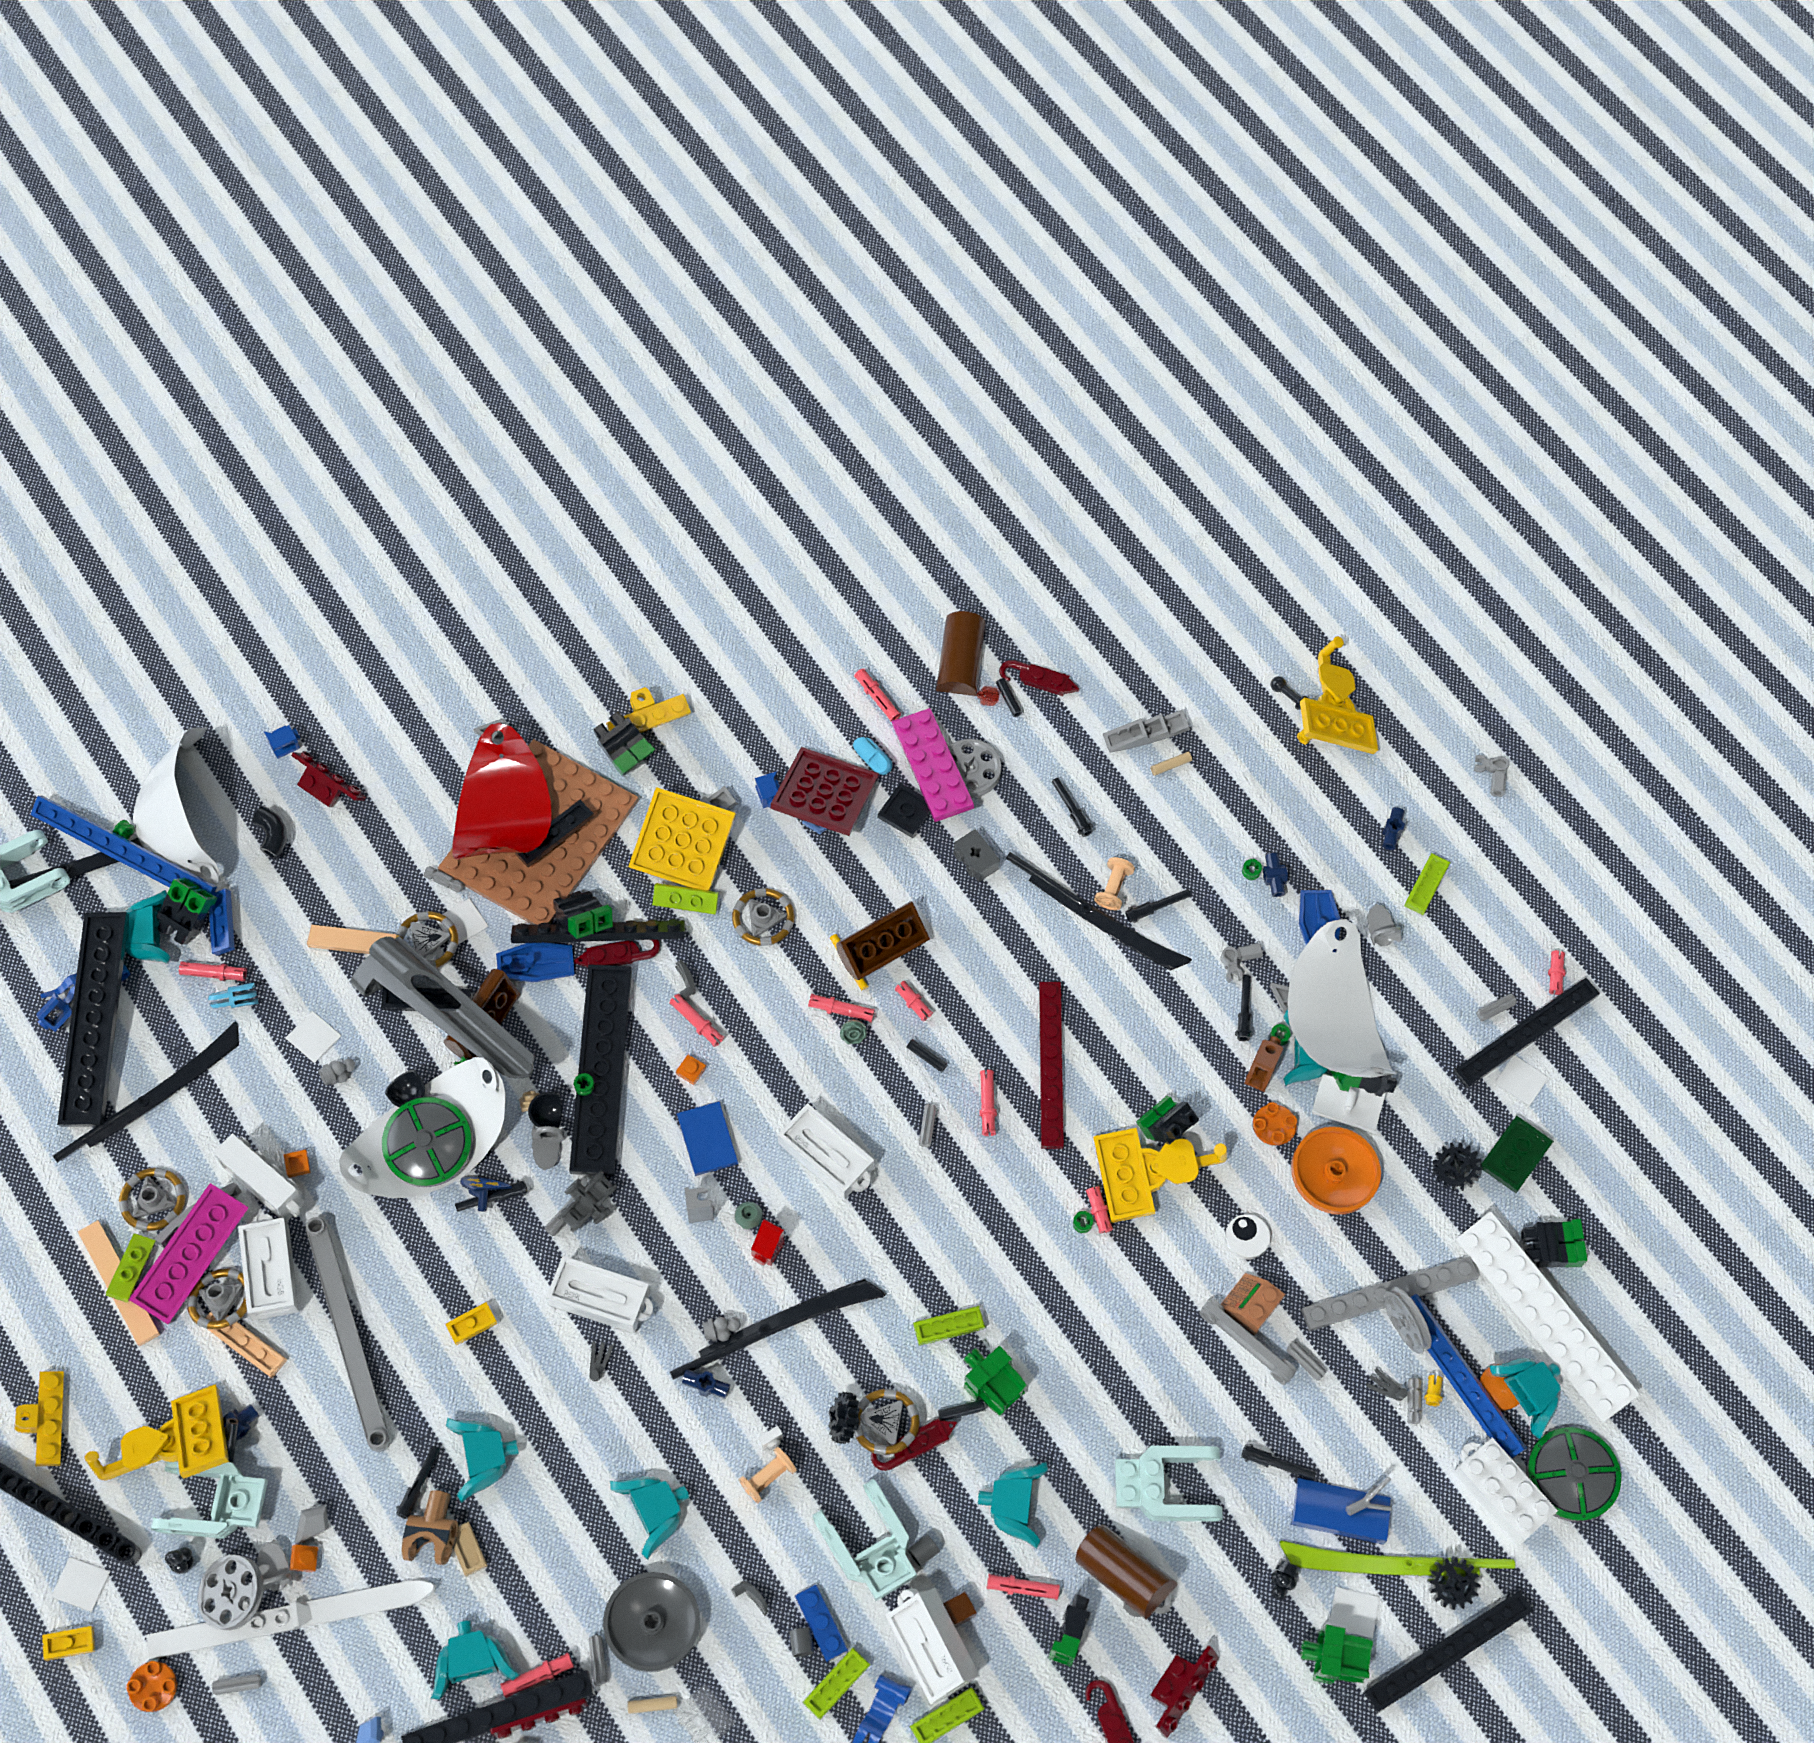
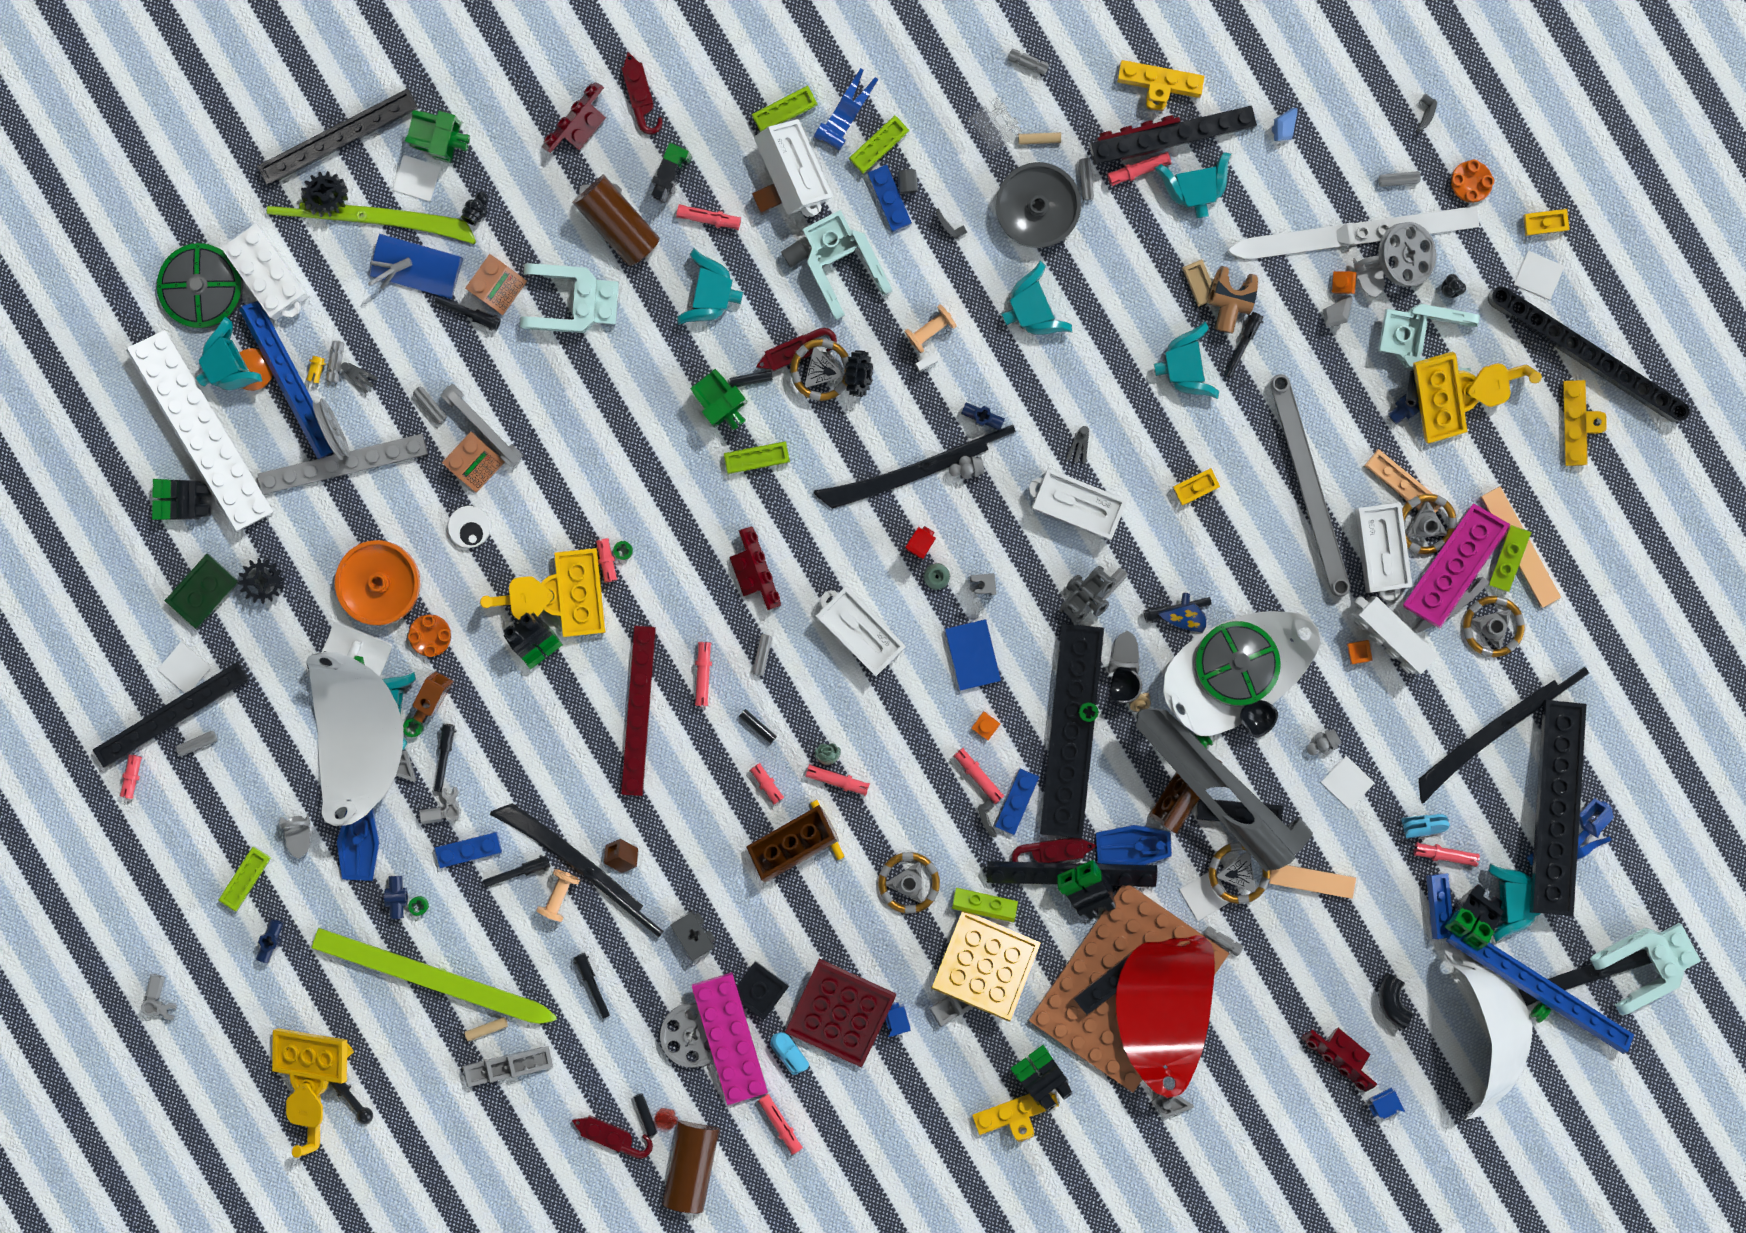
camera: 170 degrees left, 25 degrees up
(656, 999) = (1017, 801): none -> blue plate
(943, 1209) = (753, 571): none -> dark red bracket
(1055, 924) = (621, 855): none -> reddish brown panel
(1208, 923) = (468, 849): none -> blue plate
(1230, 804) = (431, 977): none -> lime piece
(1250, 1494) = (496, 284): none -> nougat slope

